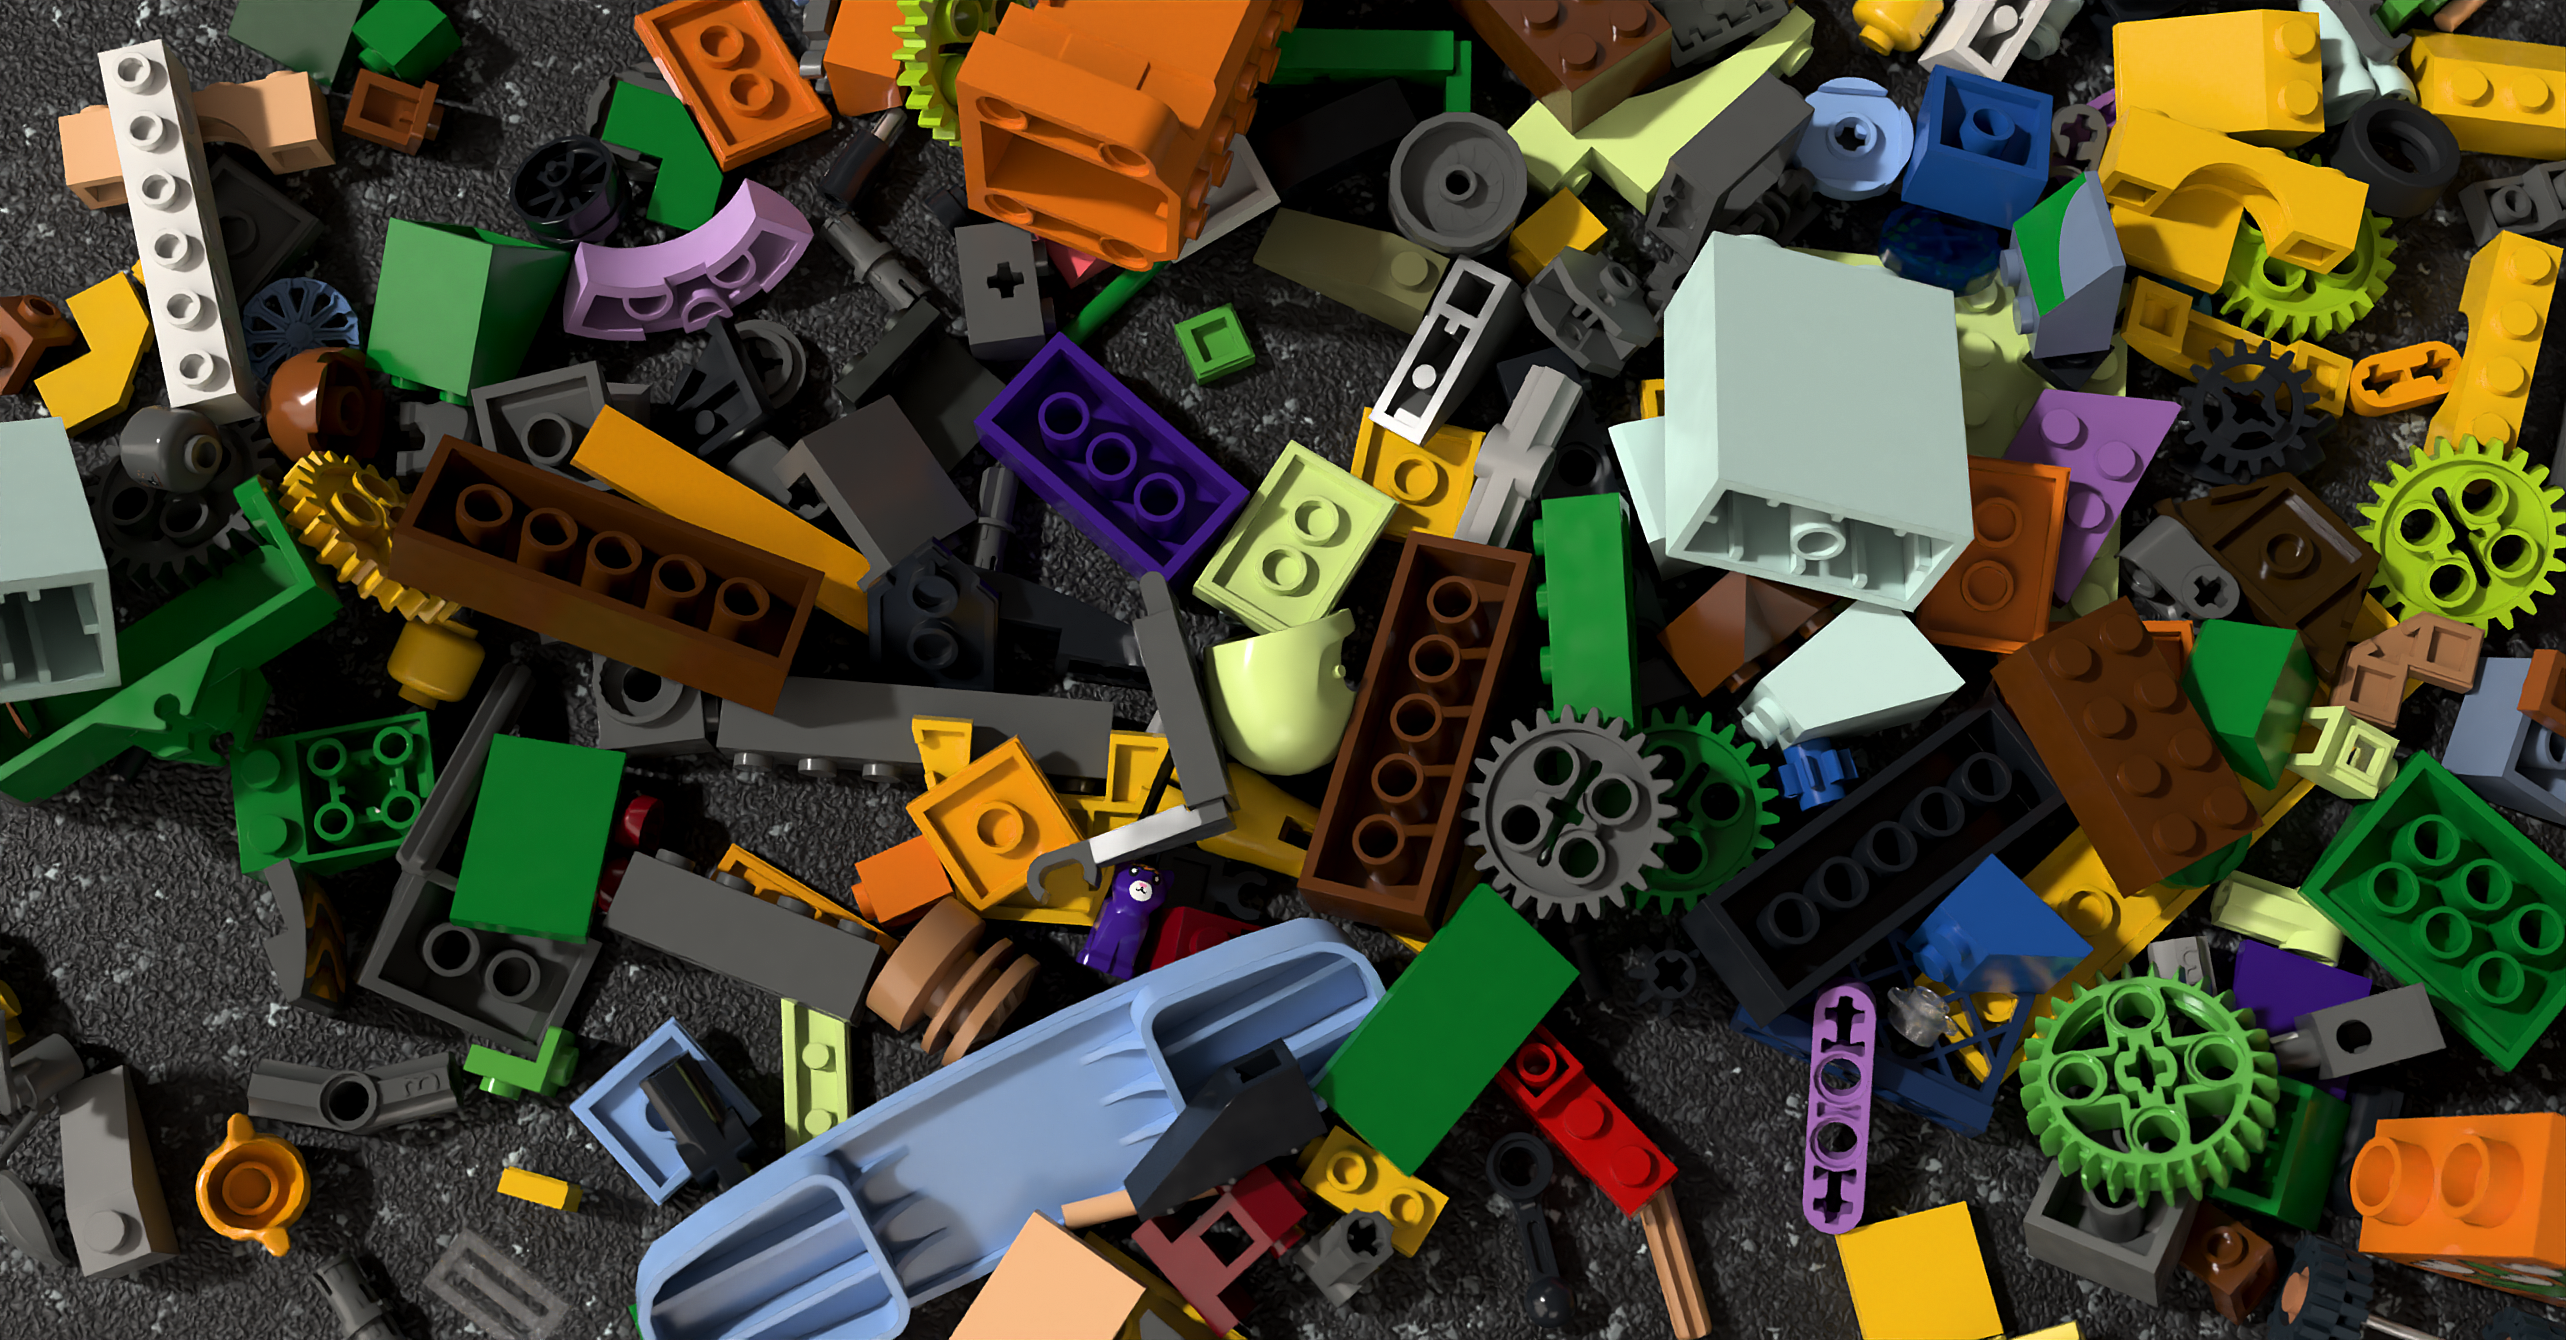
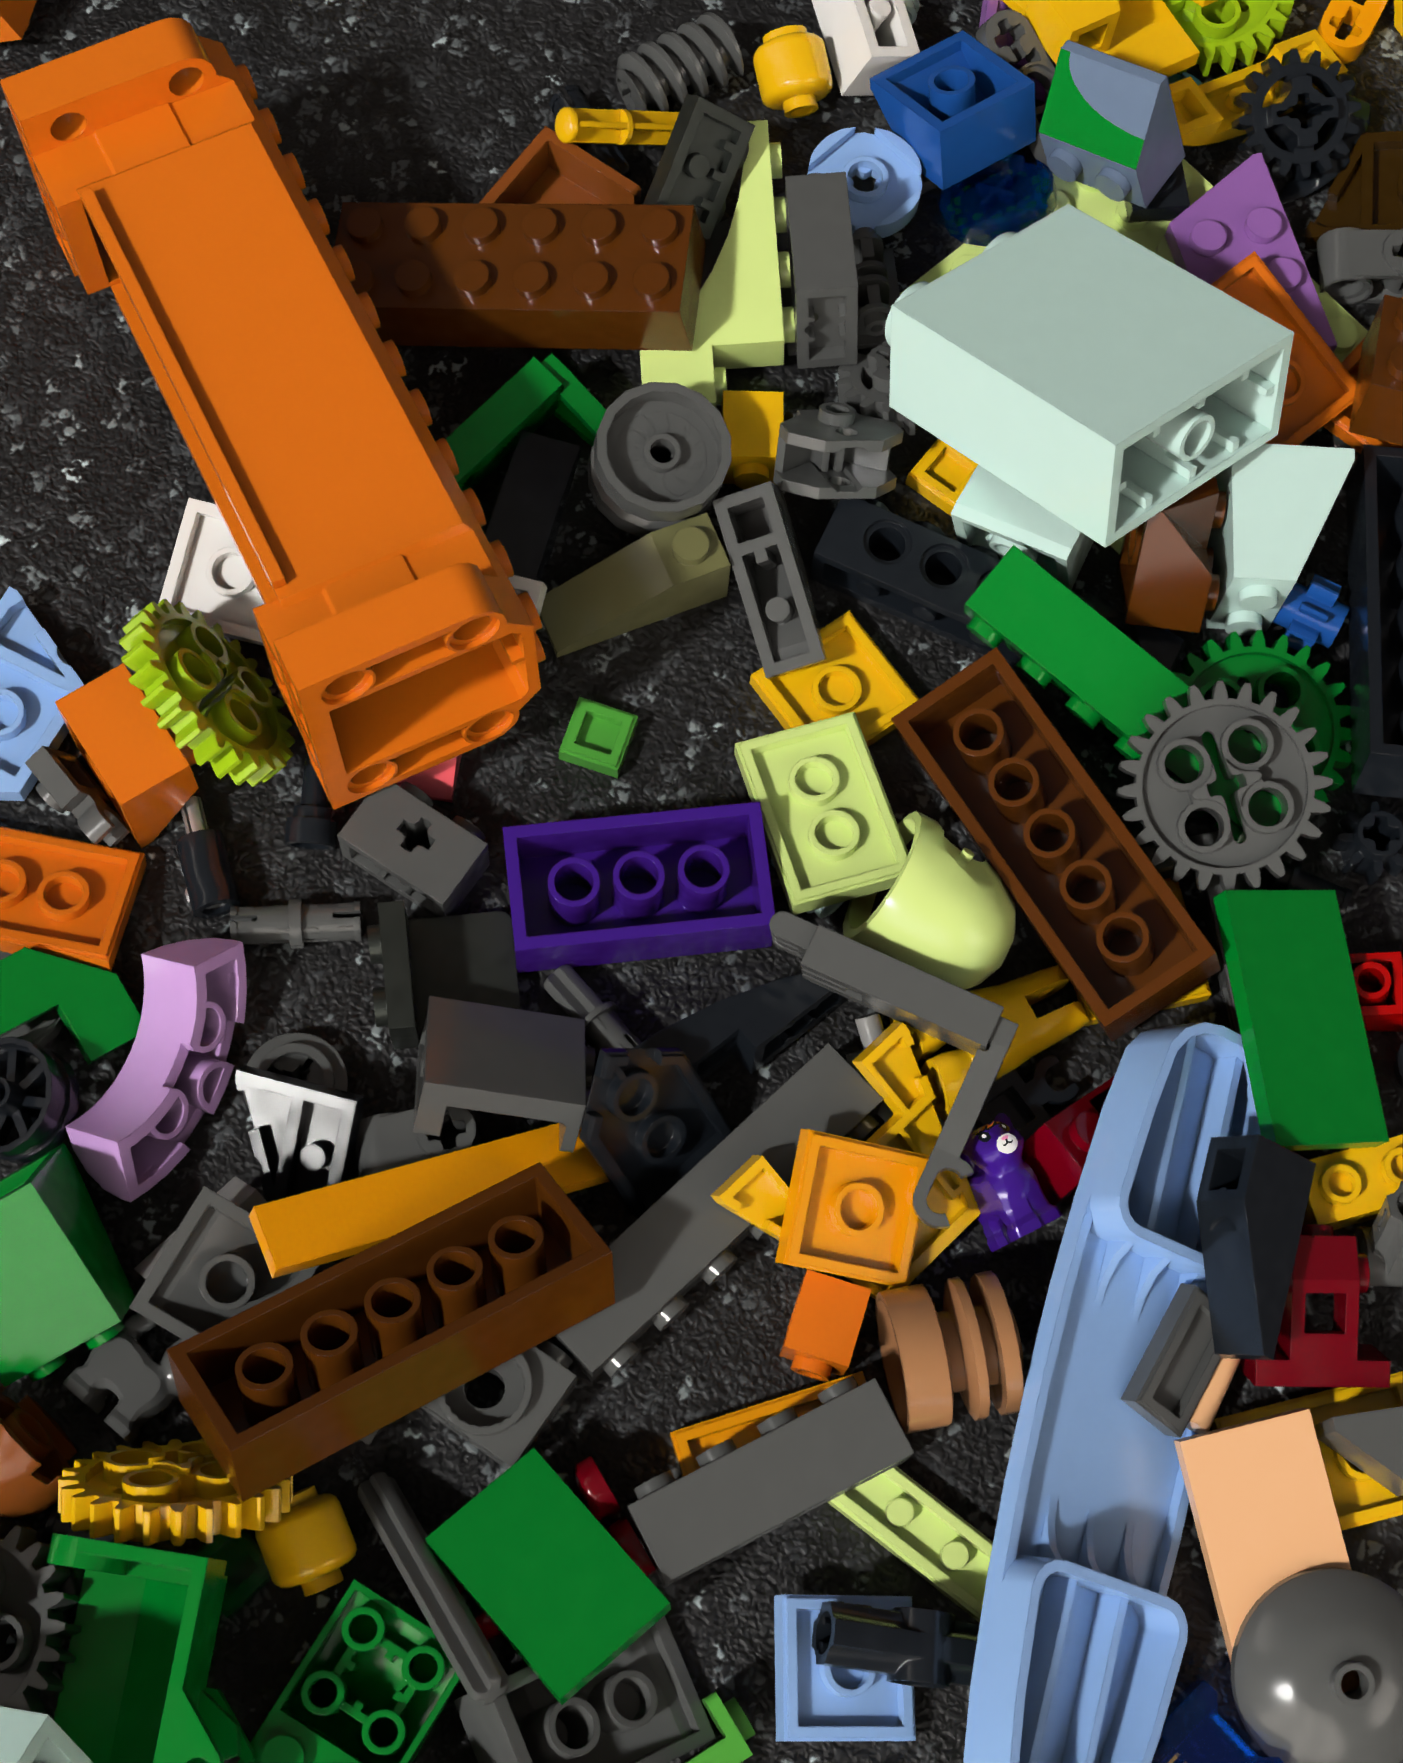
camera: 50 degrees left, 5 degrees down
(371, 630) = (244, 1568): none -> dark green tile
(1091, 1162) = (1175, 1364): none -> dark grey tile
(1108, 303) = (492, 793): green piece -> none
(1518, 458) = (906, 598): light grey piece -> none

